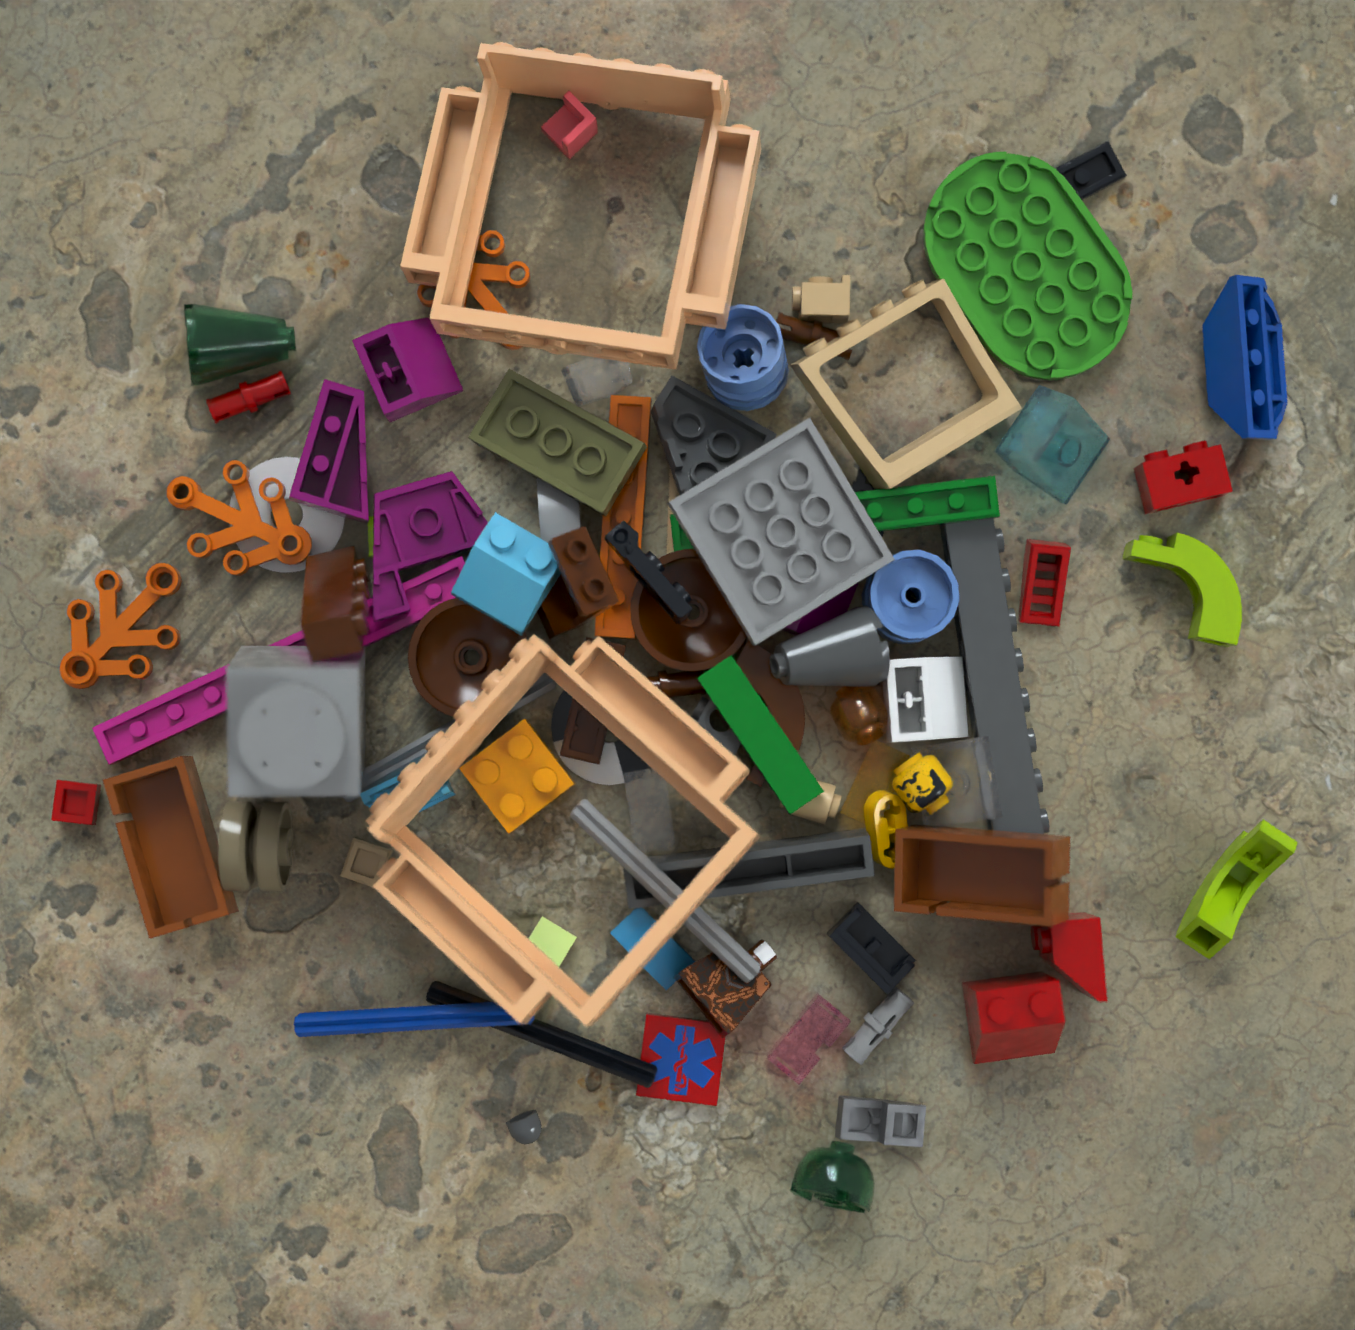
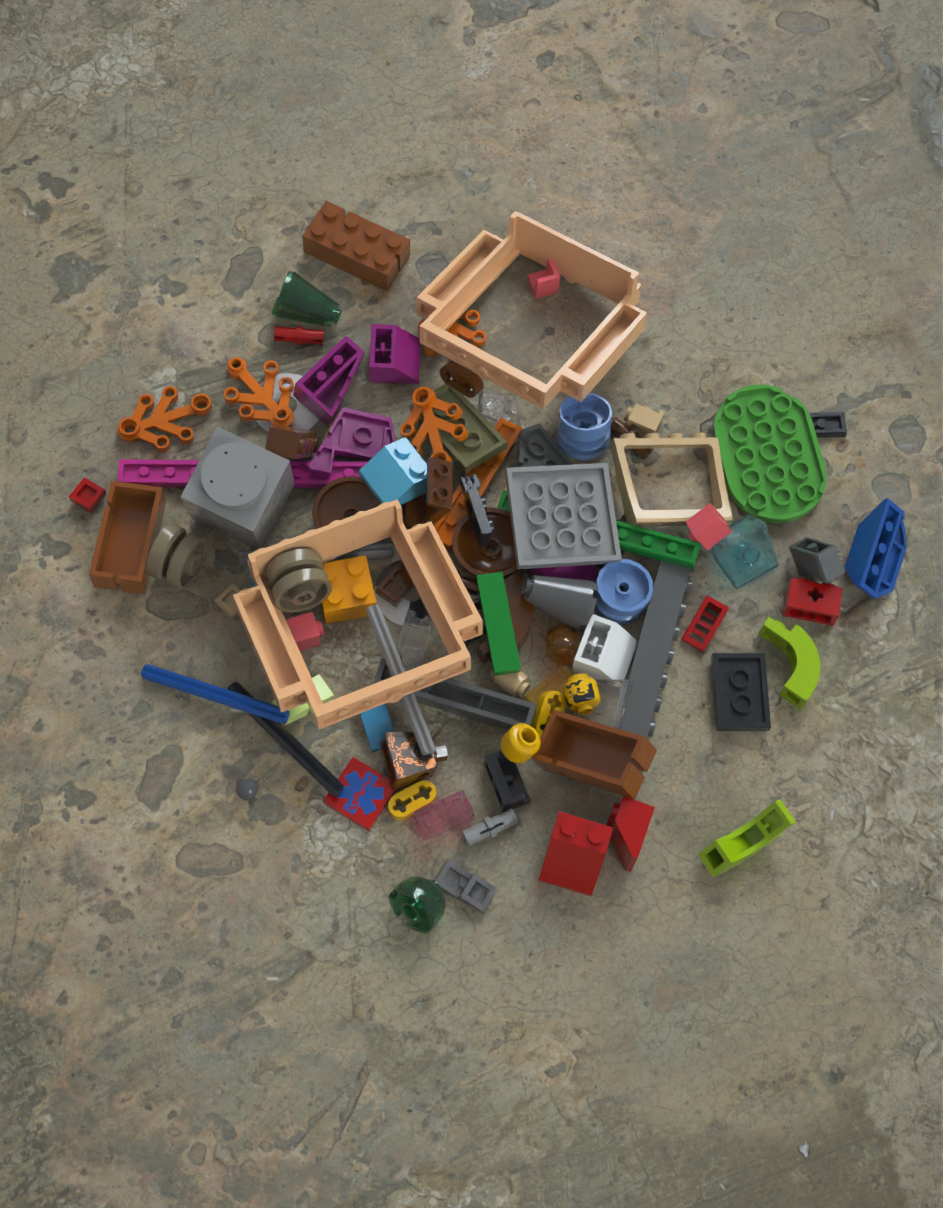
camera: 25 degrees right, 20 degrees down
(259, 202) = (356, 245): none -> dark orange piece
(452, 815) = (298, 580): none -> dark tan wheel
(490, 866) = (305, 630): none -> coral brick
(519, 465) = (431, 423): none -> orange plant
(528, 364) = (461, 379): none -> reddish brown beam
(763, 1041) = (408, 795): none -> yellow beam
(873, 903) = (520, 743): none -> yellow head
(994, 443) = (708, 527): none -> coral brick
(1136, 665) = (740, 692): none -> black plate
(1169, 417) = (817, 560): none -> dark grey brick

